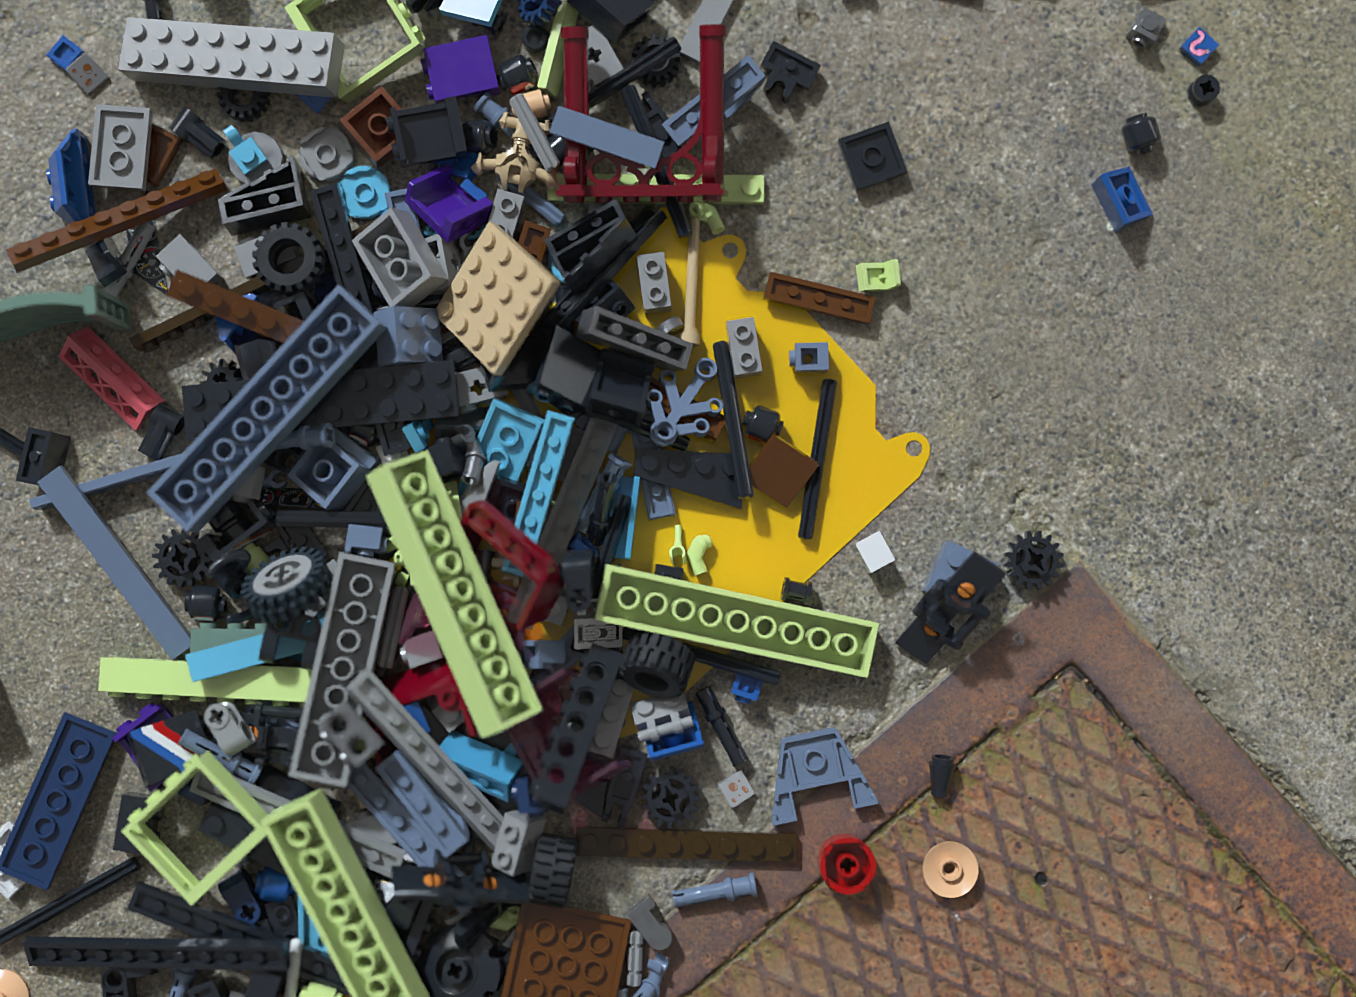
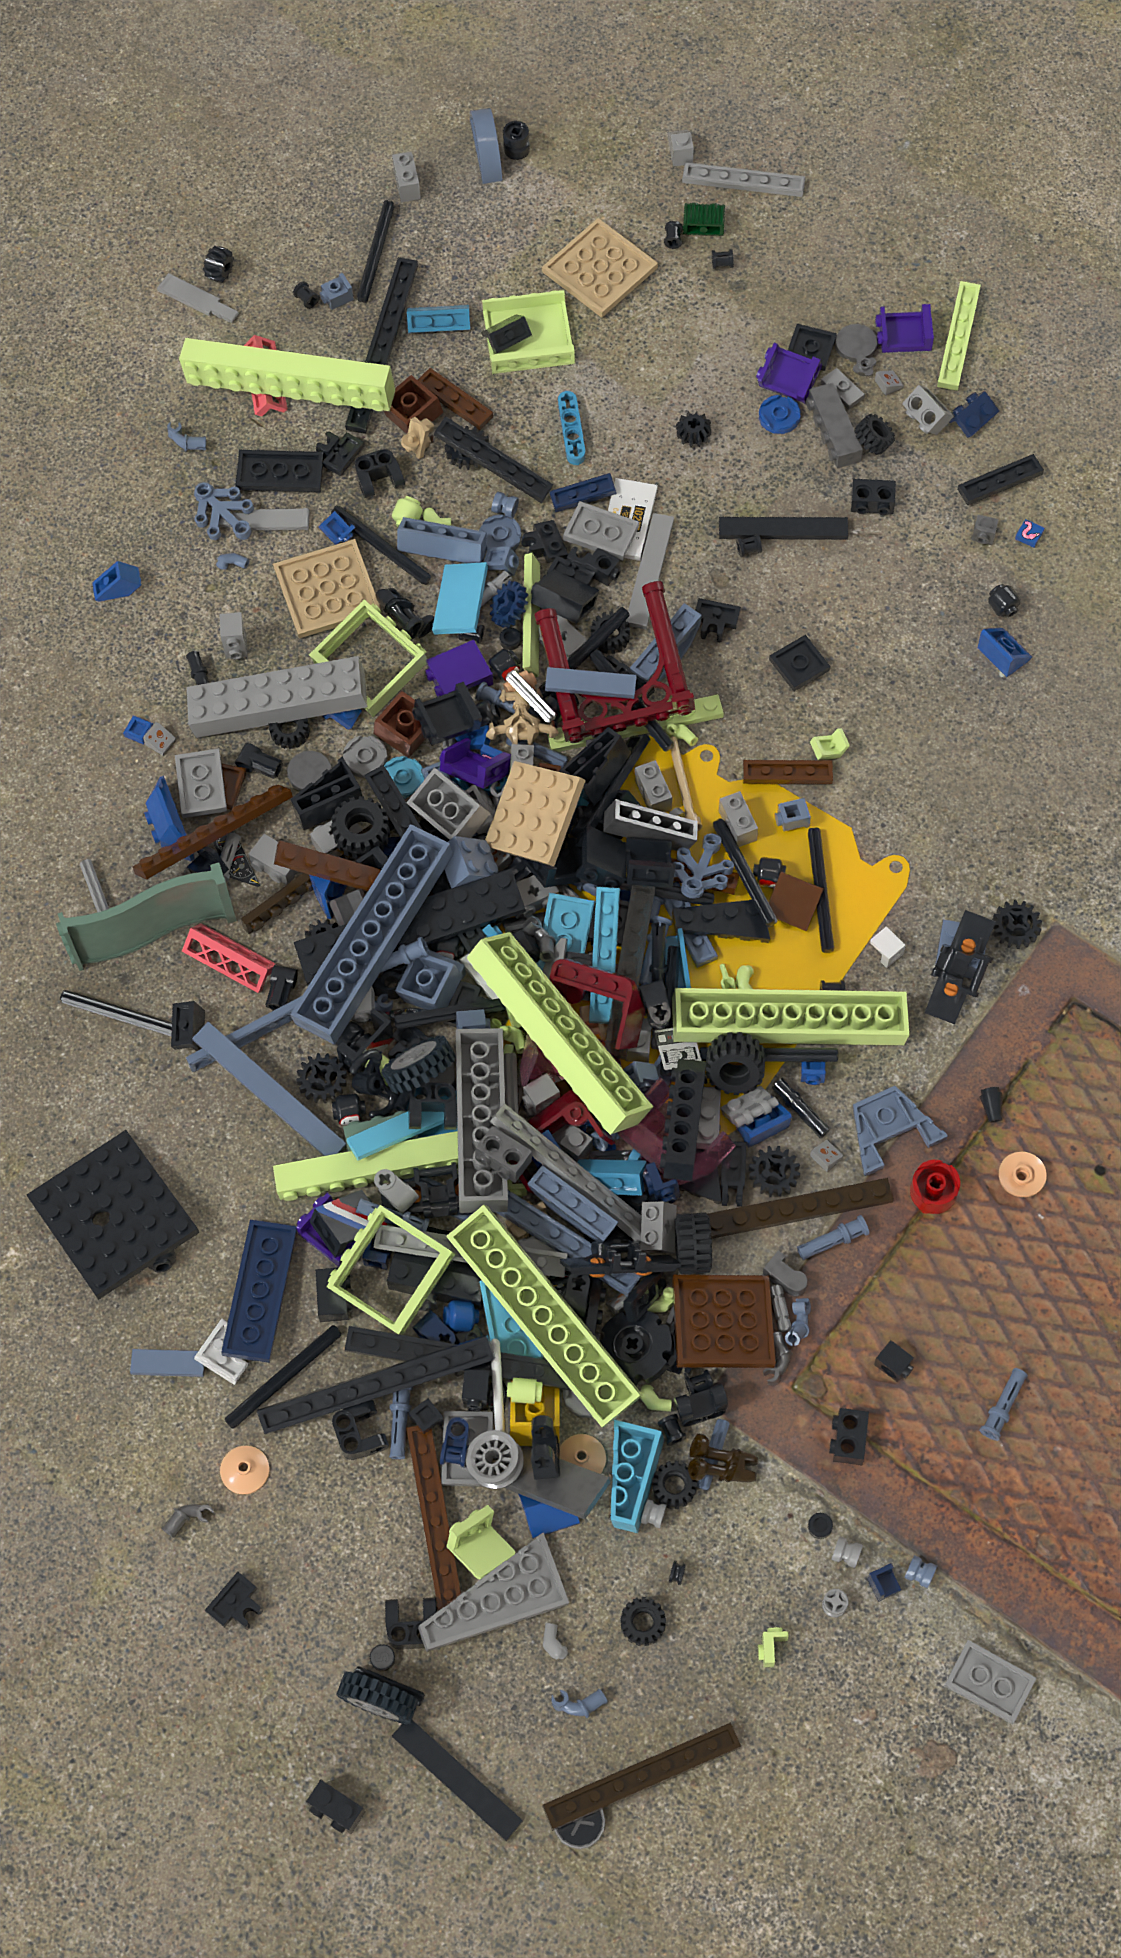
camera: 10 degrees left, 20 degrees down
(246, 153) = (302, 767): medium azure plate -> none
(1197, 95) = (1038, 565): black wheel -> none

